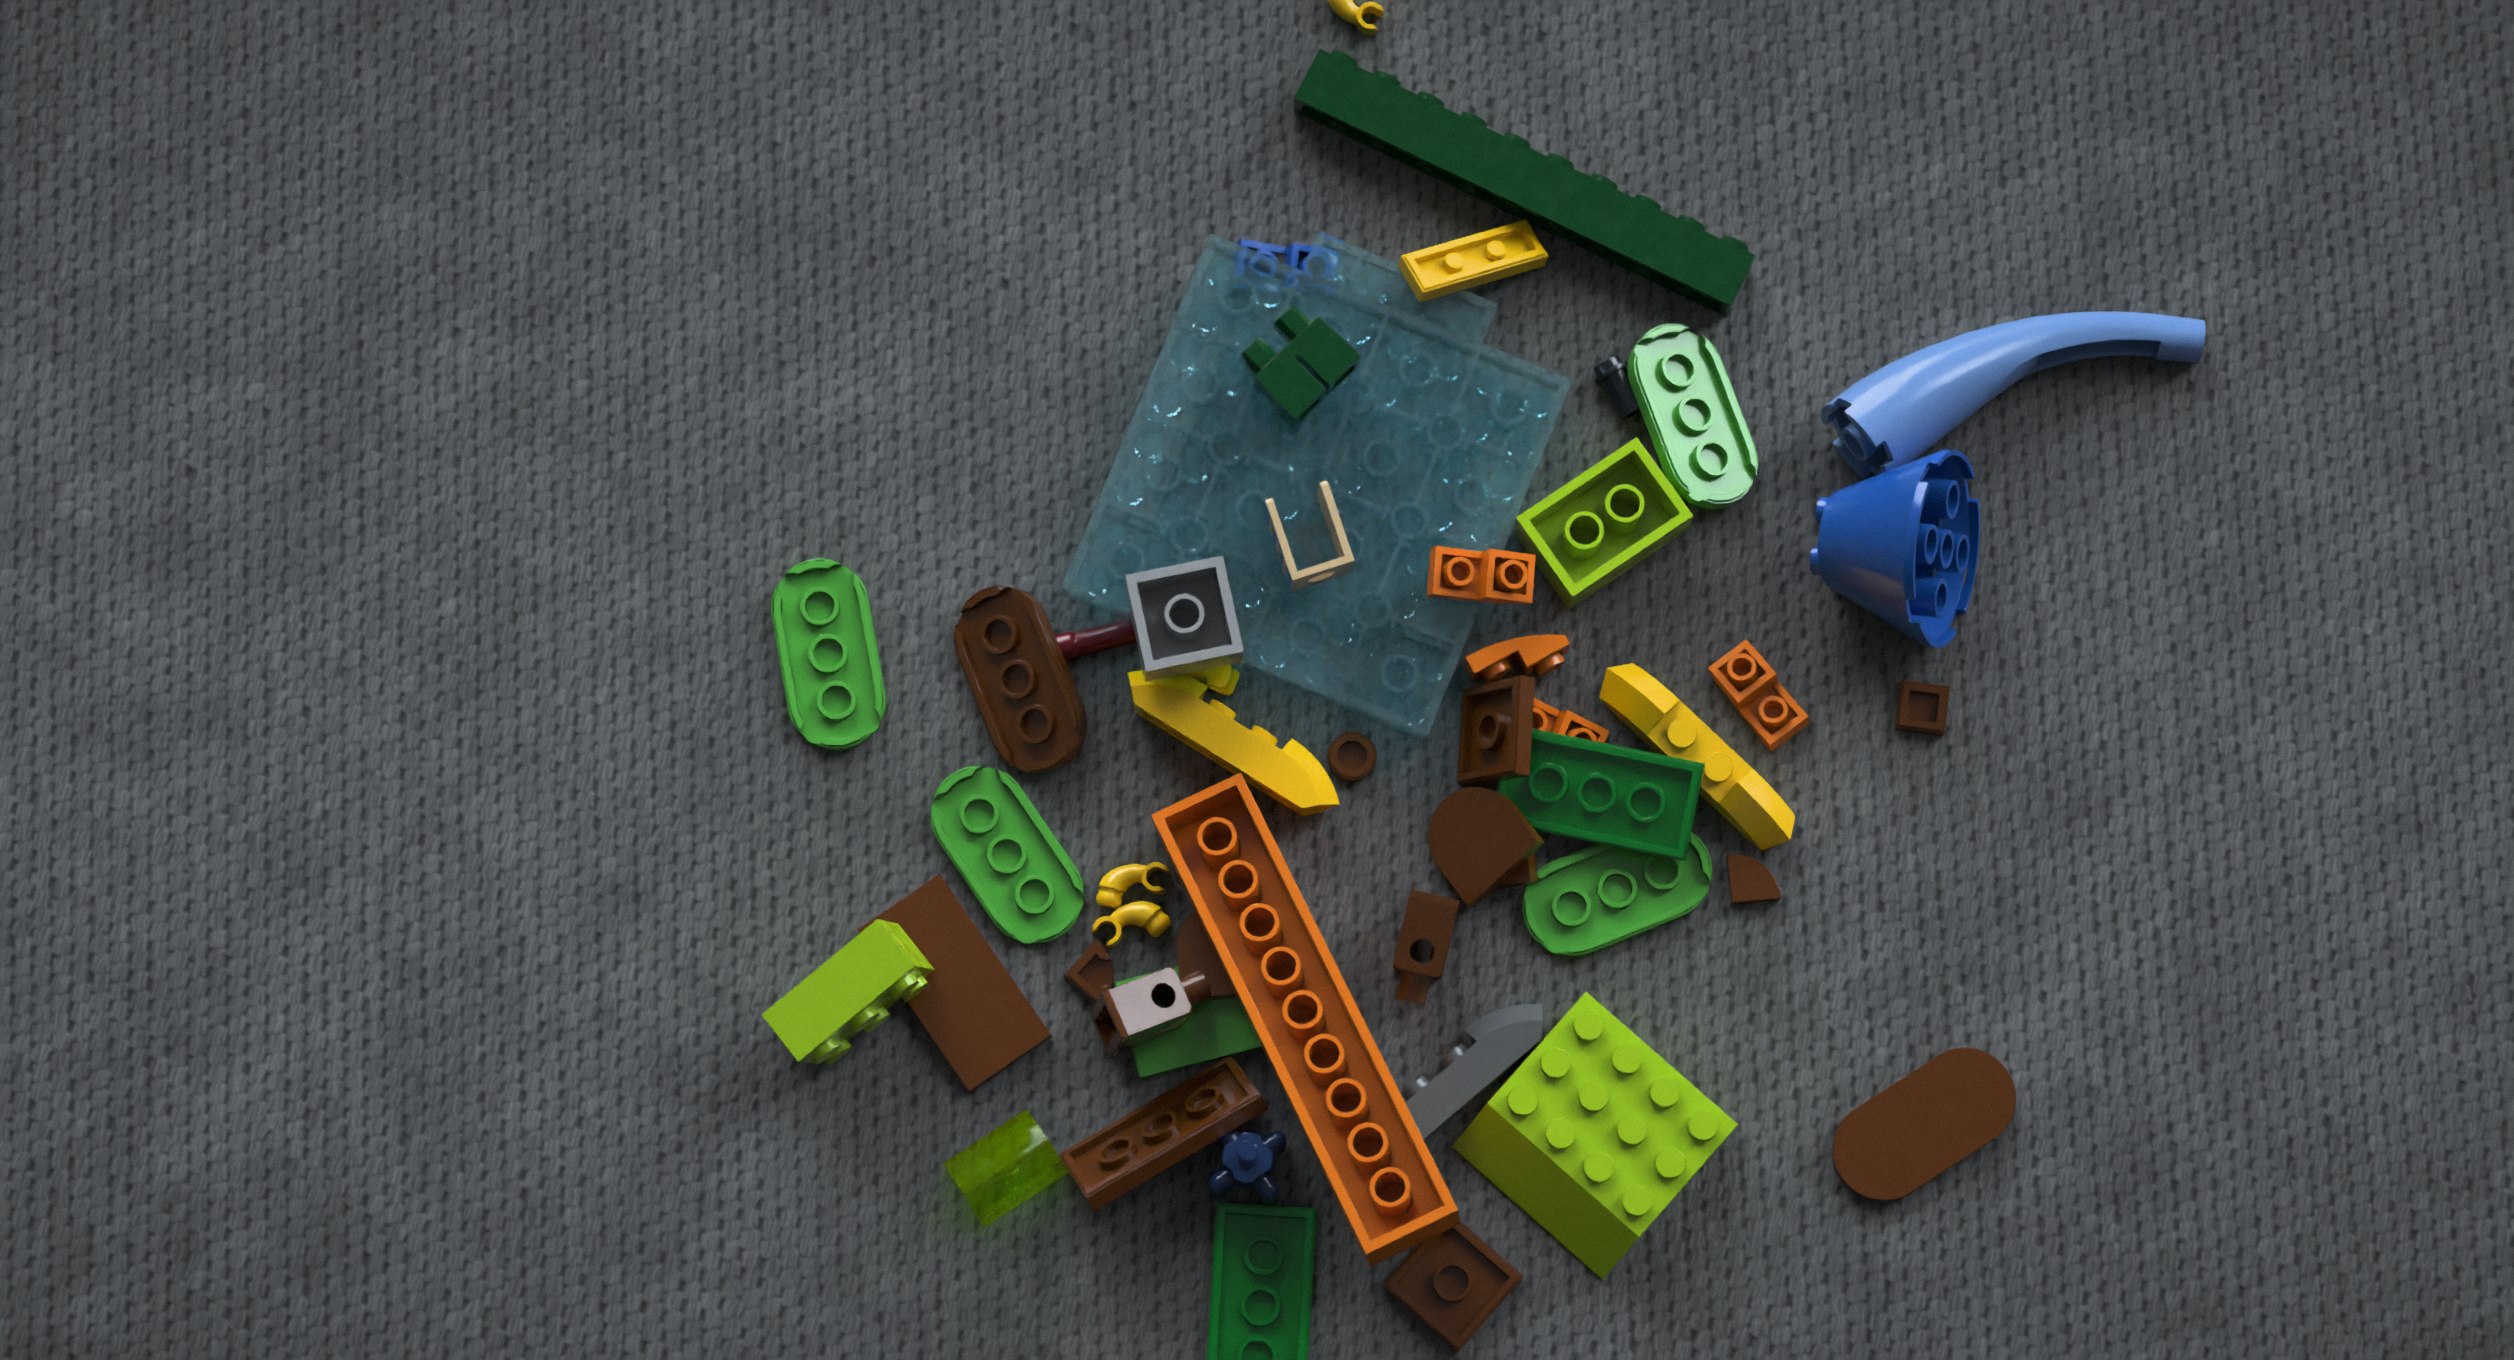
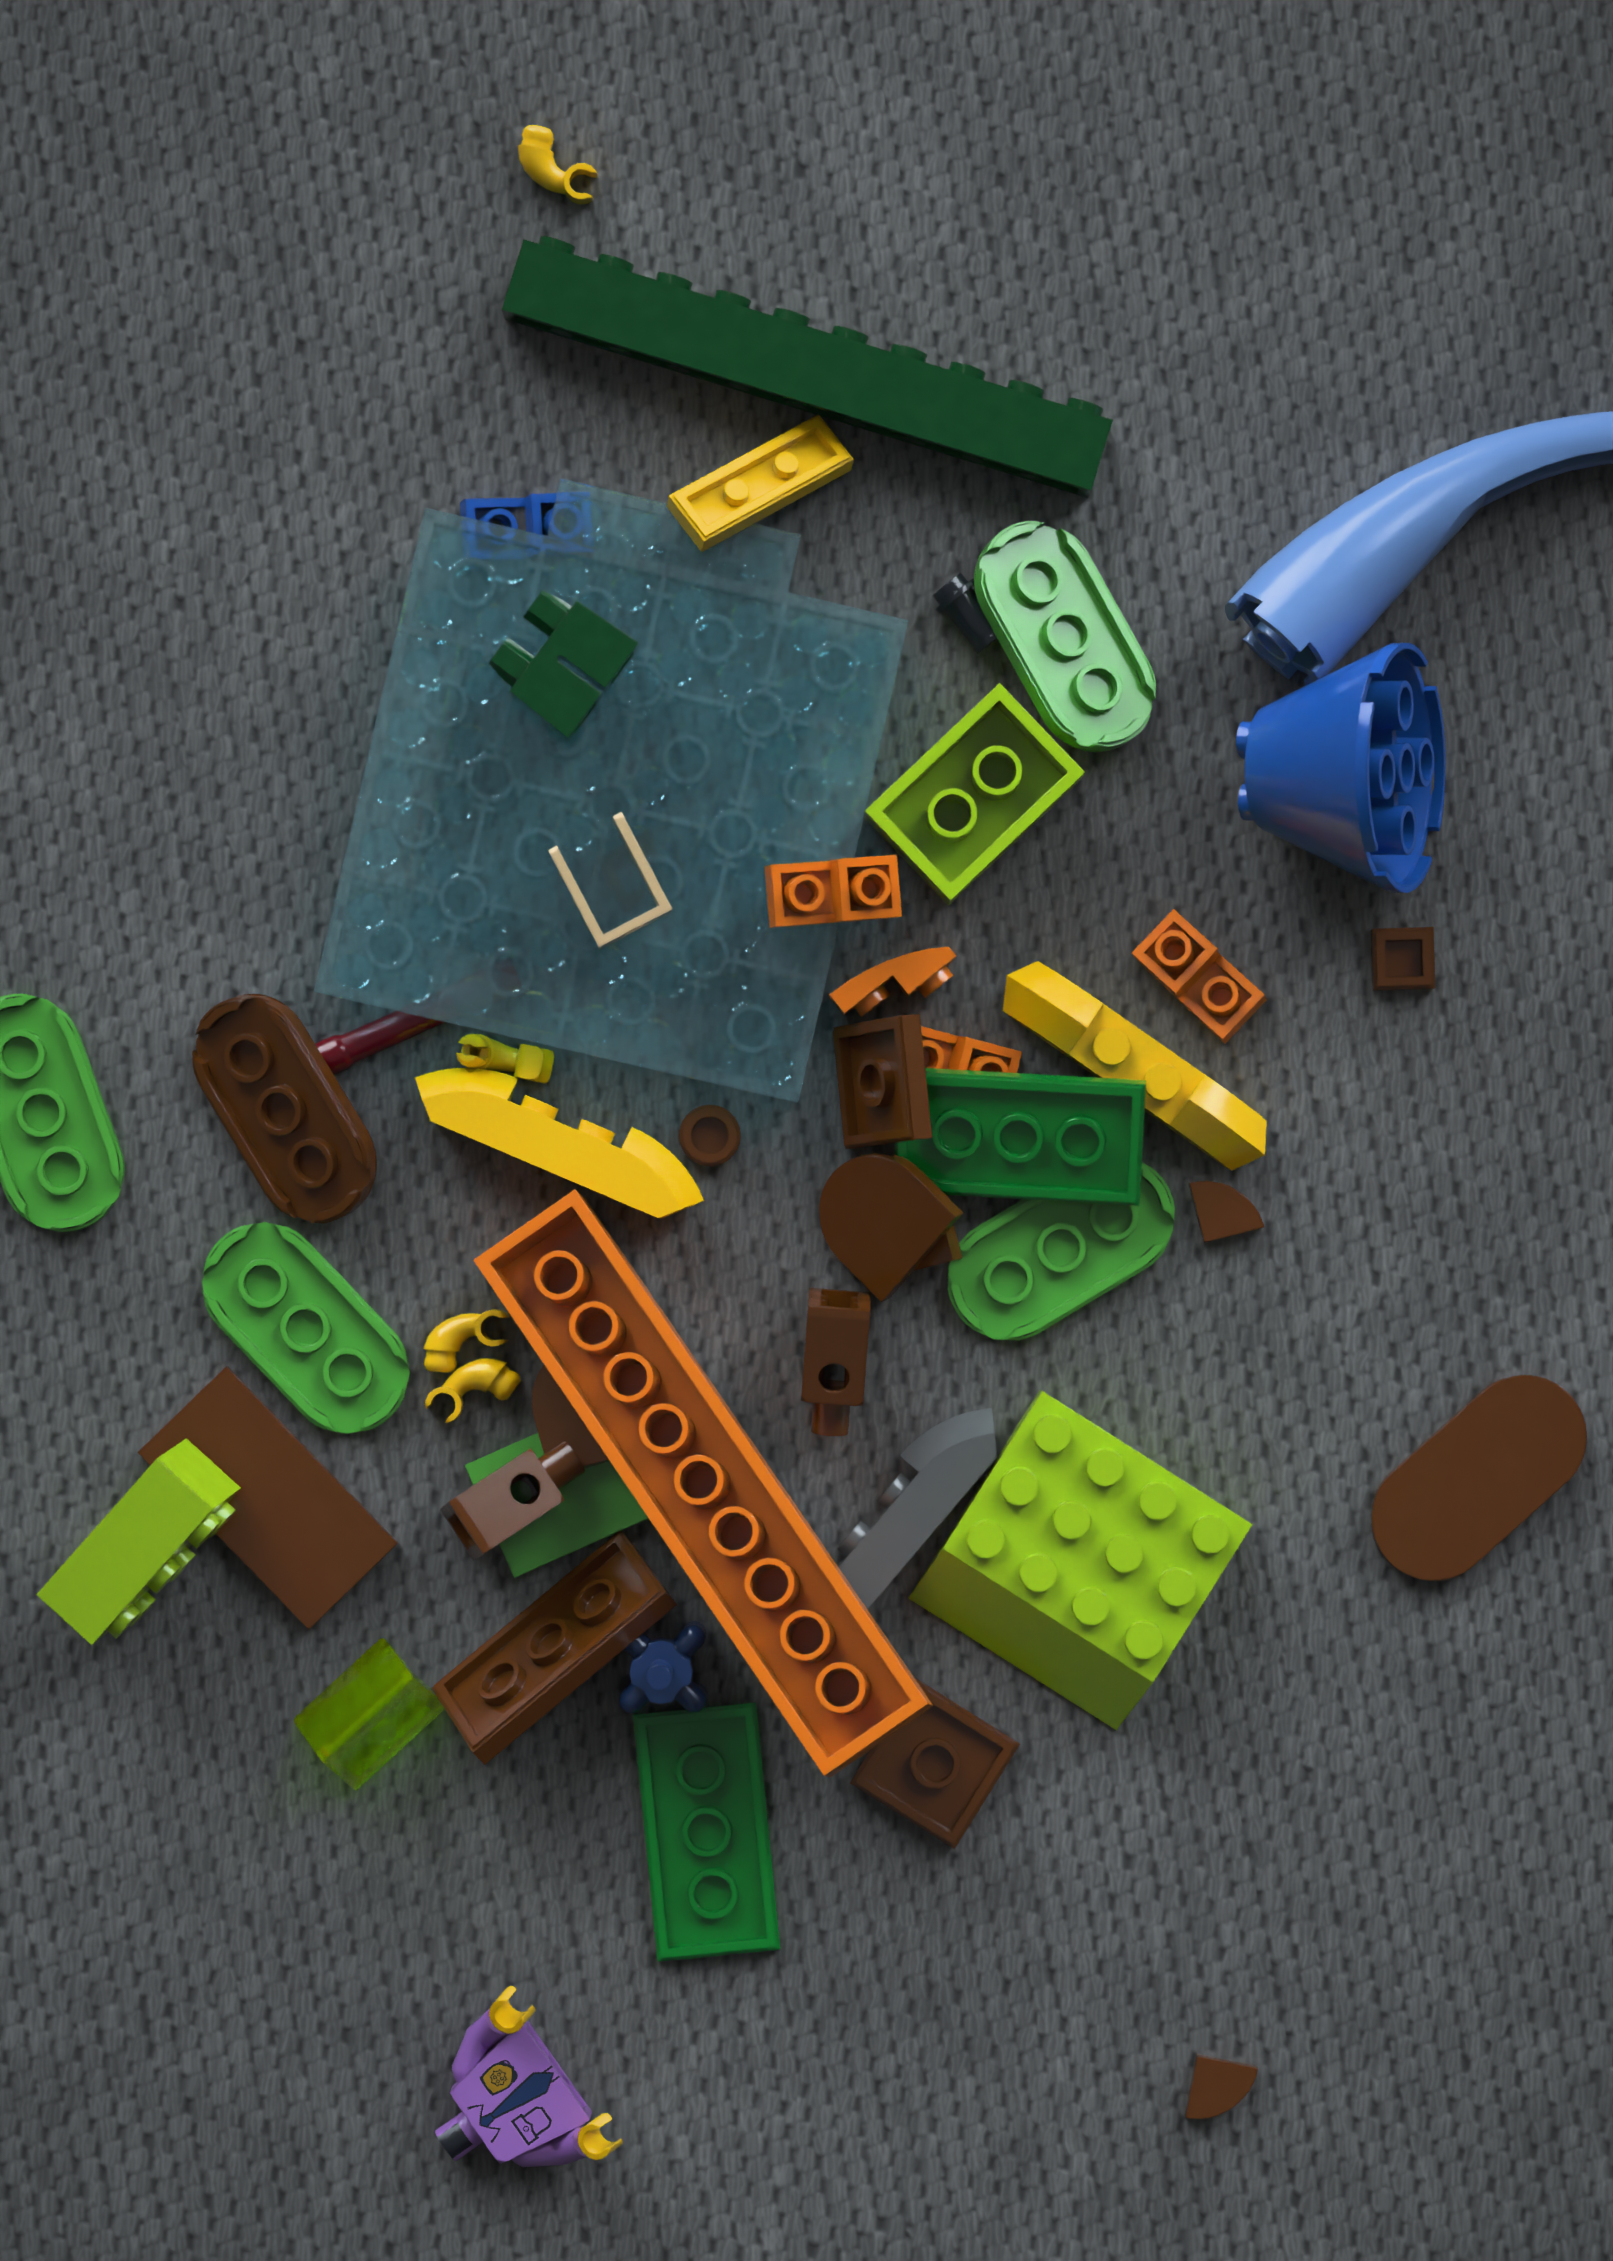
camera: 10 degrees left, 10 degrees up
(1092, 972) = (436, 1458): reddish brown tile -> none
(1184, 618) = (471, 1013): light grey brick -> none

